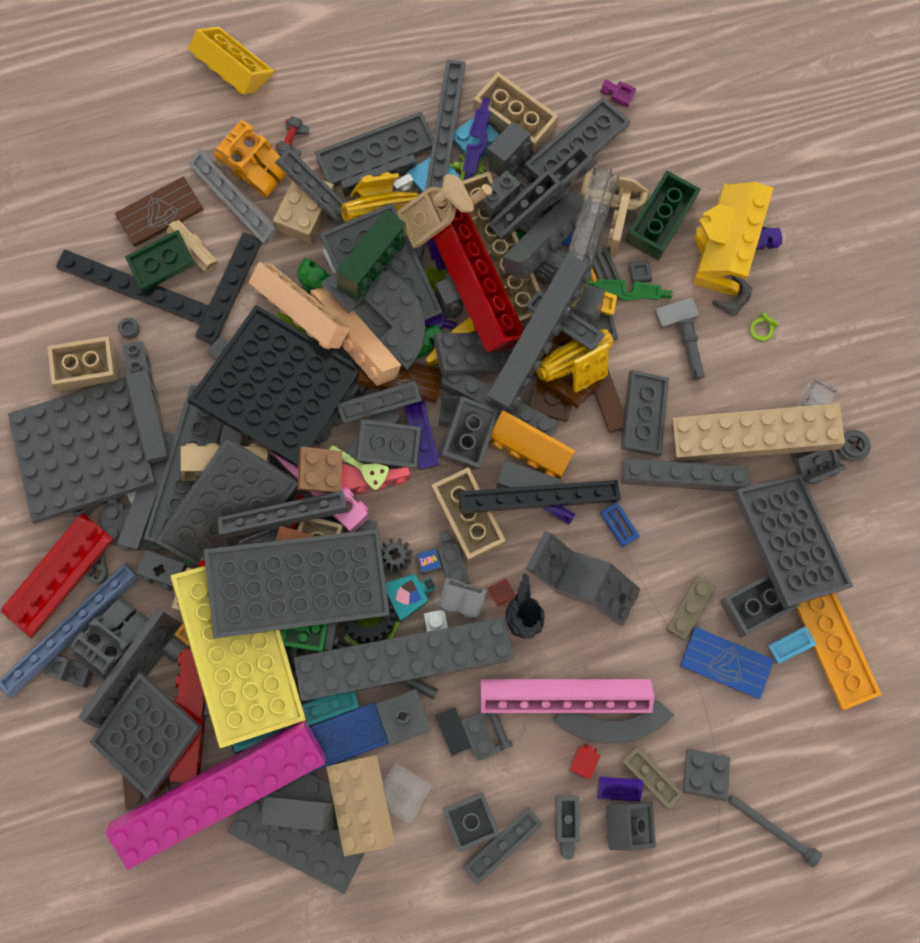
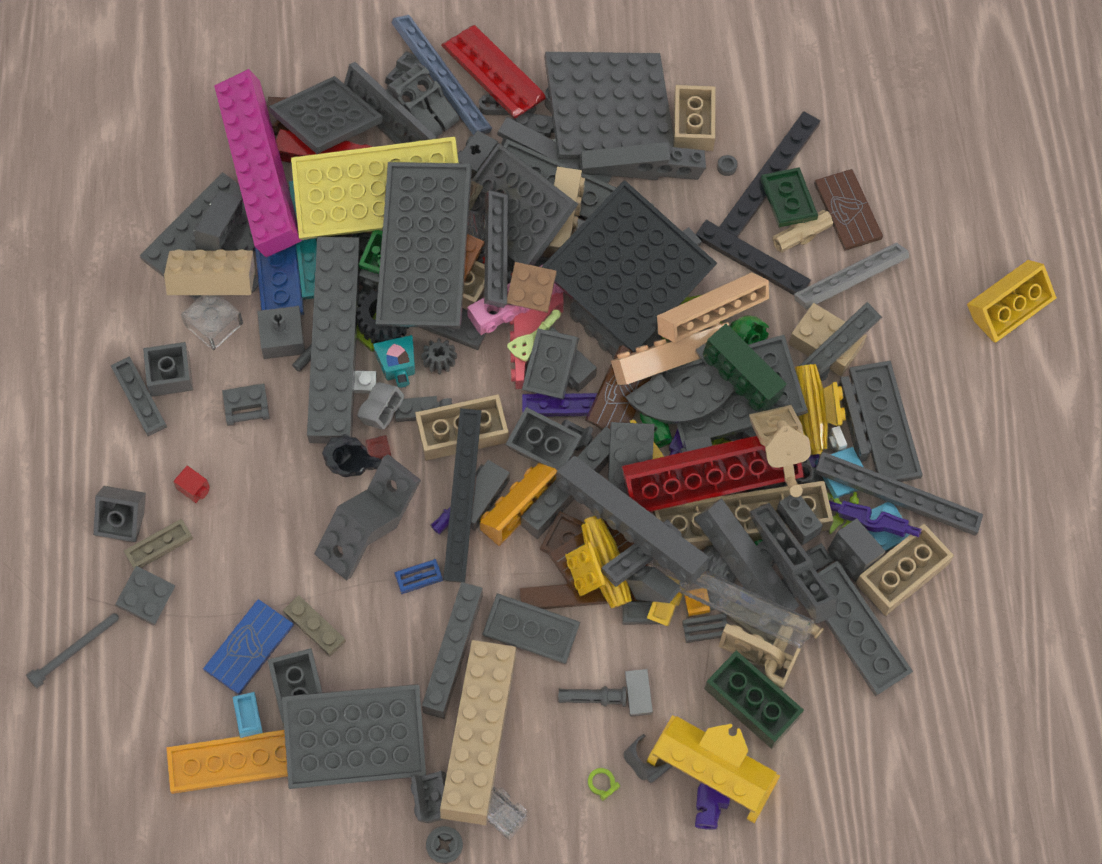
camera: 105 degrees right, 10 degrees down
(256, 163) = (886, 298): light orange connector -> none
(294, 126) = (899, 336): dark grey piece -> none
(379, 401) = (595, 362): dark grey plate -> none
(428, 561) = (427, 386): tile -> none
(453, 731) = (256, 375): black tile -> none
(566, 696) = (258, 480): bright pink brick -> none
(567, 824) = (139, 453): dark grey hinge -> none
(615, 731) = (213, 521): dark grey tile -> none
(619, 789) = (156, 511): dark purple plate -> none
(620, 93) = (916, 695): magenta plate -> none
(638, 290) = (672, 656): green piece -> none
(640, 272) = (694, 665): dark grey tile -> none

